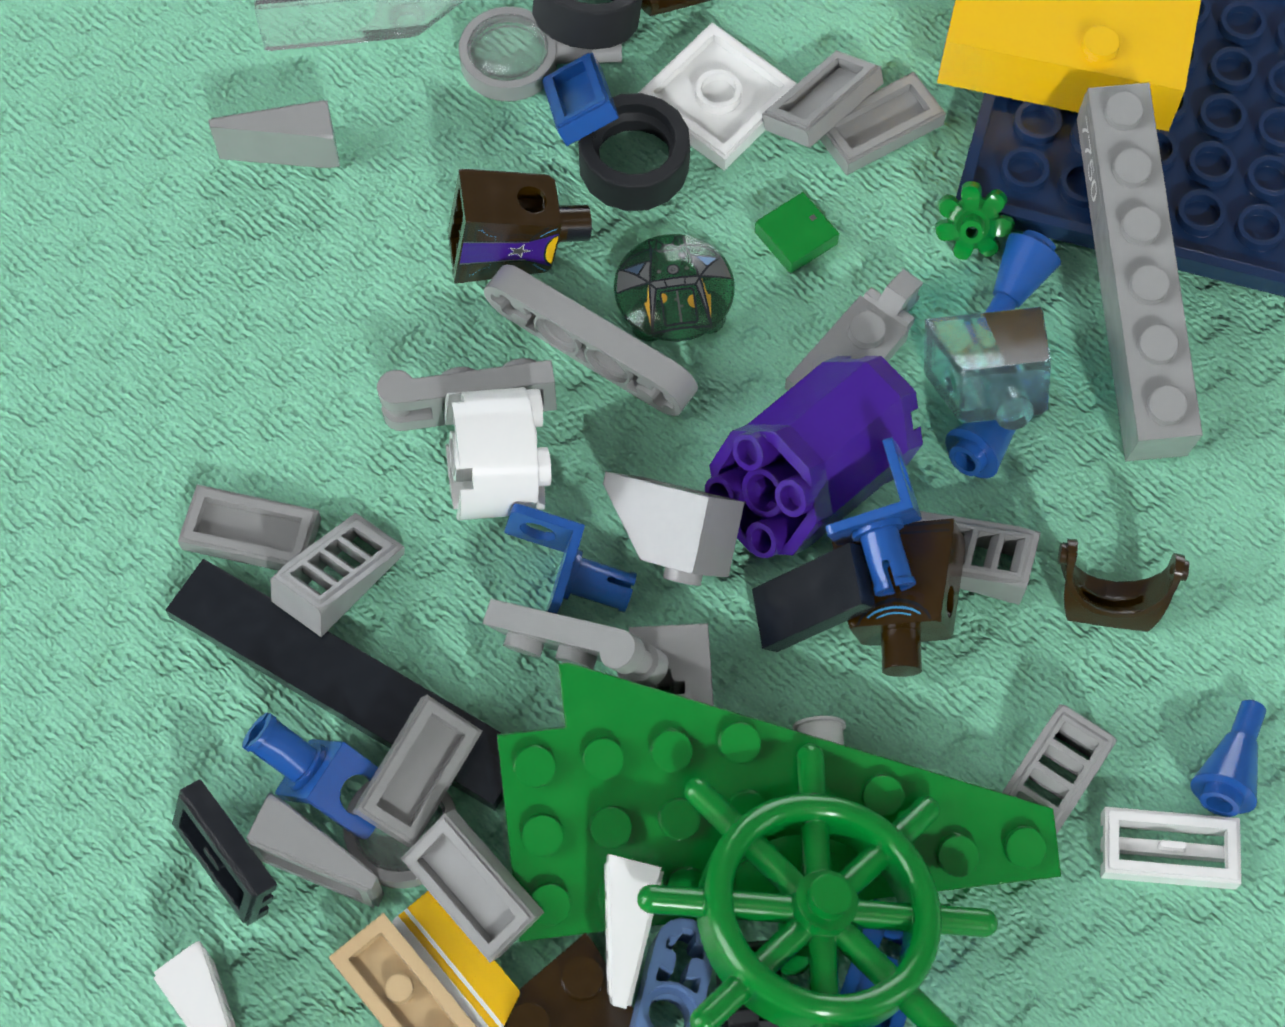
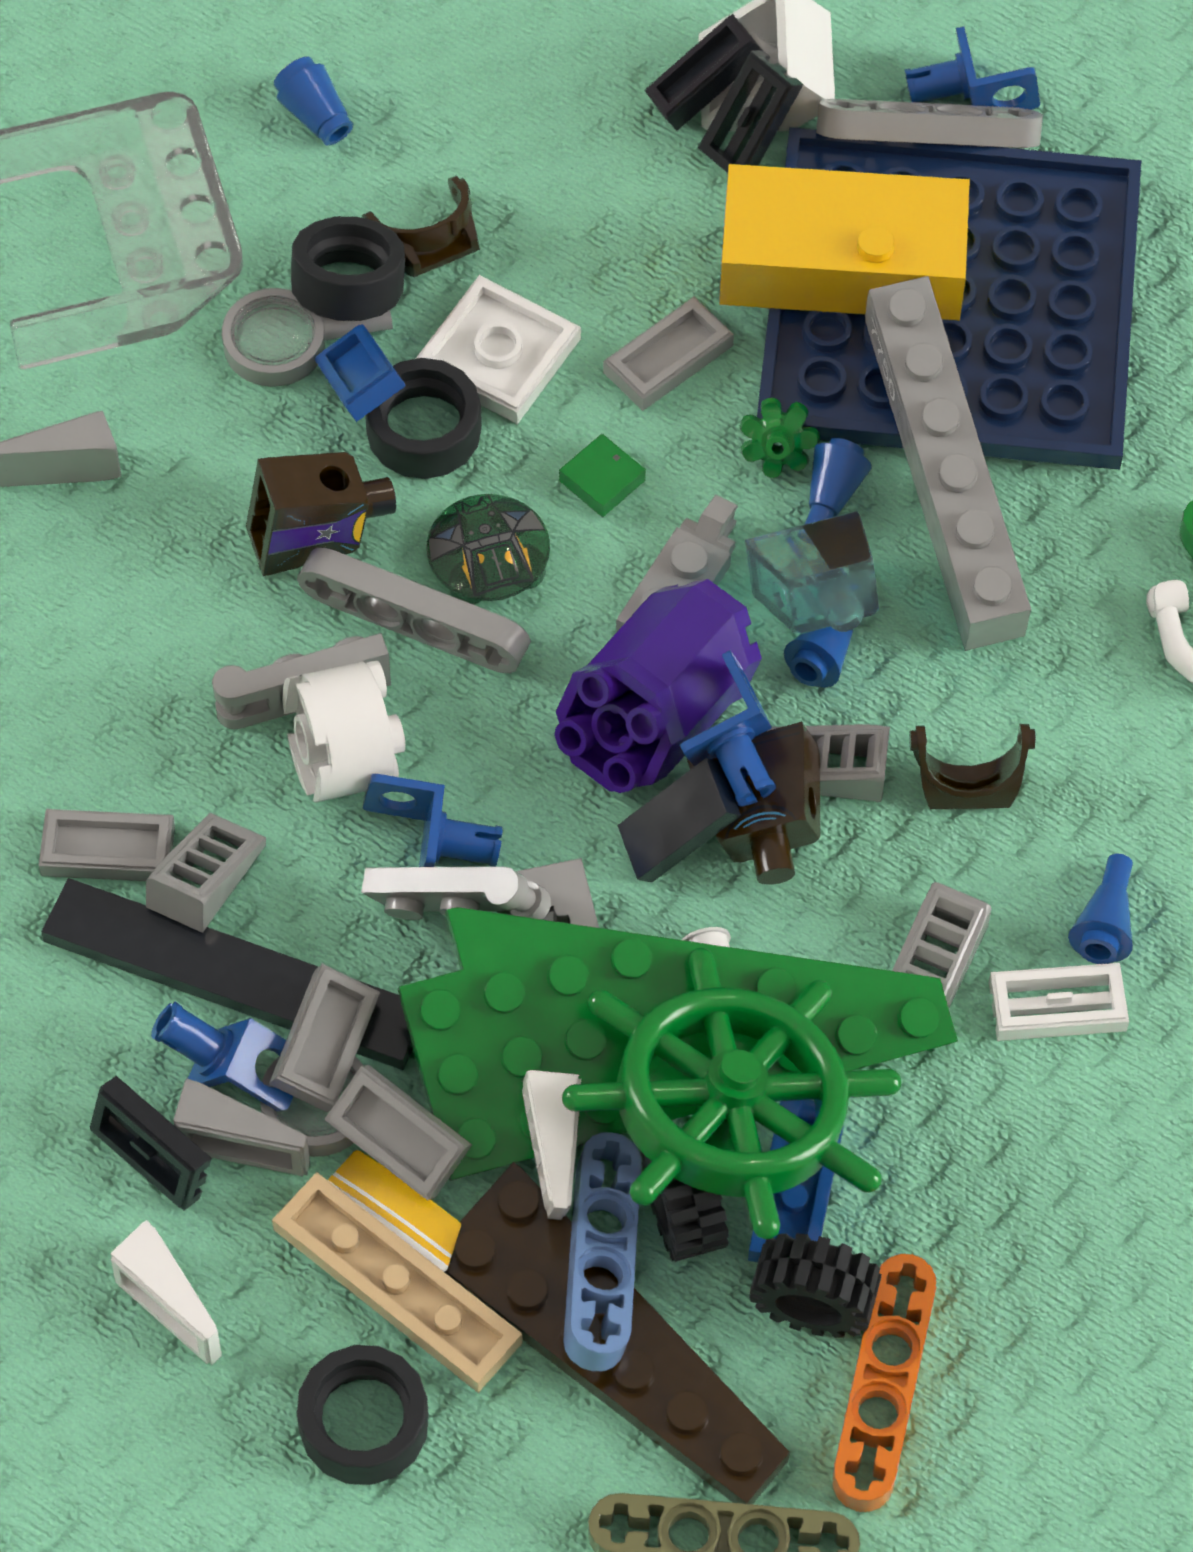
camera: 10 degrees left, 5 degrees down
(677, 526) = (534, 773): slope -> none
(822, 98) = (606, 337): light grey tile -> none

